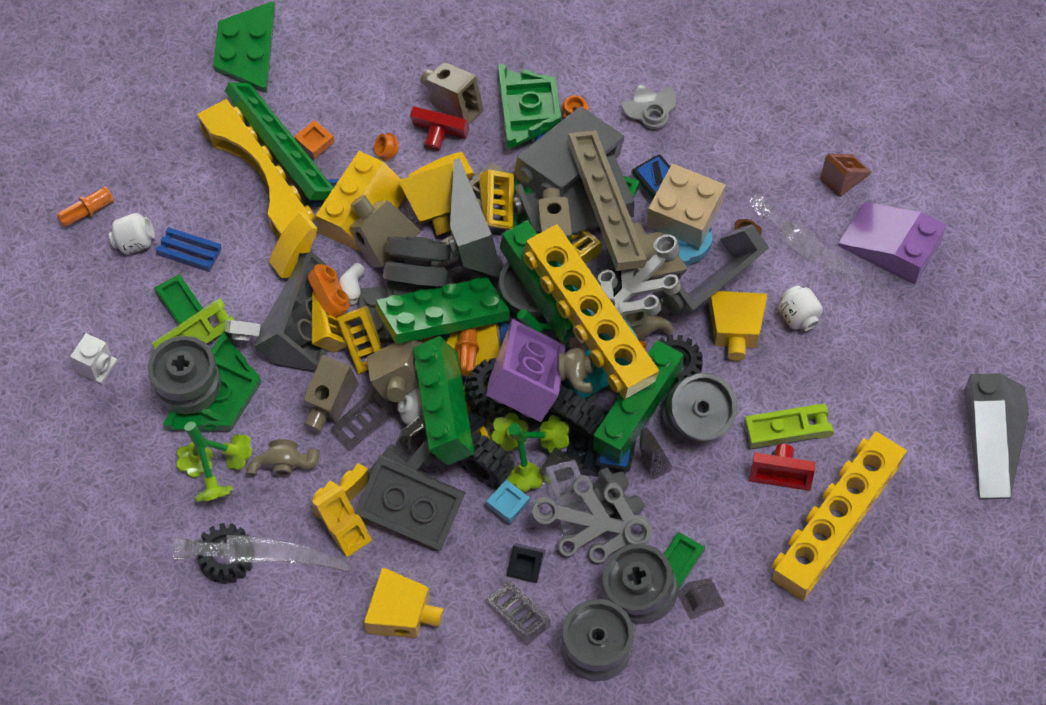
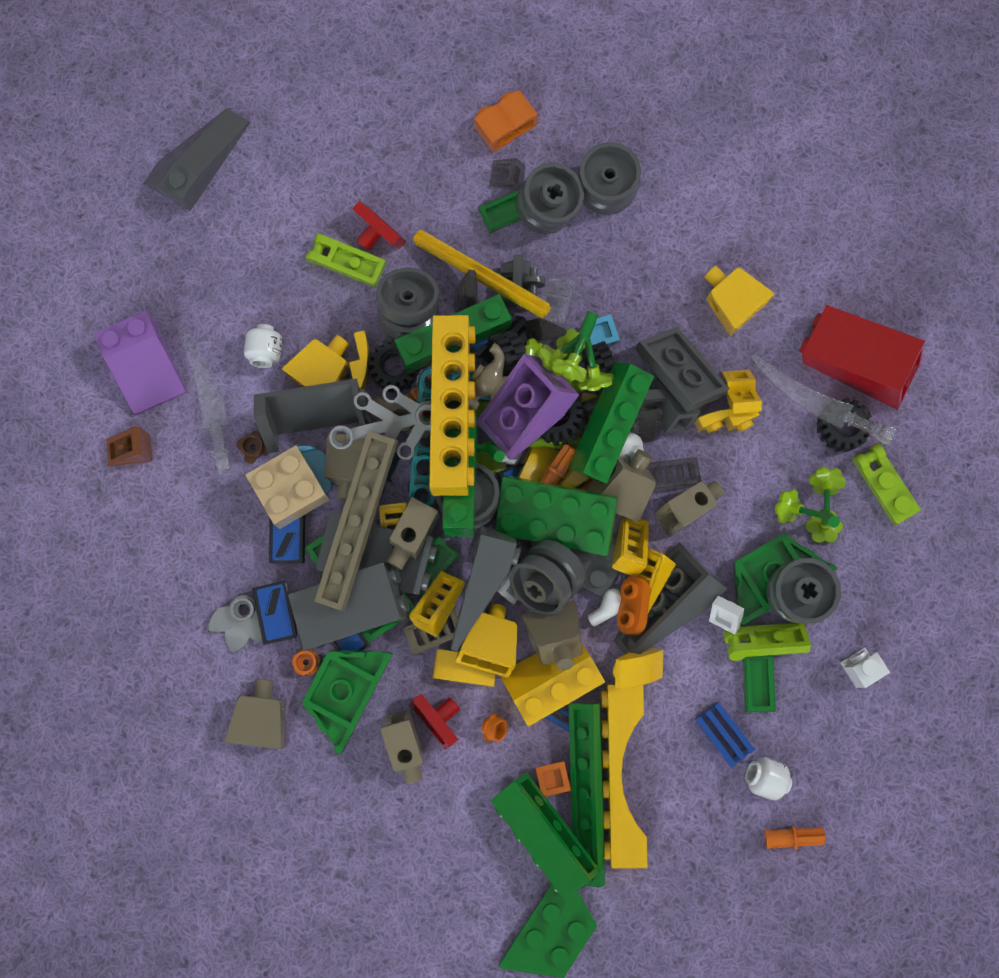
camera: 145 degrees left, 20 degrees up
(151, 525) = (886, 484): none -> lime plate
(243, 621) = (863, 354): none -> red slope
(283, 458) = (755, 478): dark tan piece -> none
(294, 91) = (545, 836): none -> green brick
(525, 562) = (616, 281): black slope -> none
(528, 413) = (569, 368): none -> lime plant
(534, 630) = (644, 220): clear smoke slope -> none
(579, 49) = (259, 719): none -> dark tan torso
(597, 521) = (527, 245): light grey plant -> none
(626, 121) = (274, 612): none -> slope
(654, 475) = (484, 275): none -> yellow axle
(703, 336) = (360, 367): none -> yellow slope
(739, 643) = (505, 120): none -> orange brick
(801, 578) = (371, 154): yellow brick -> none

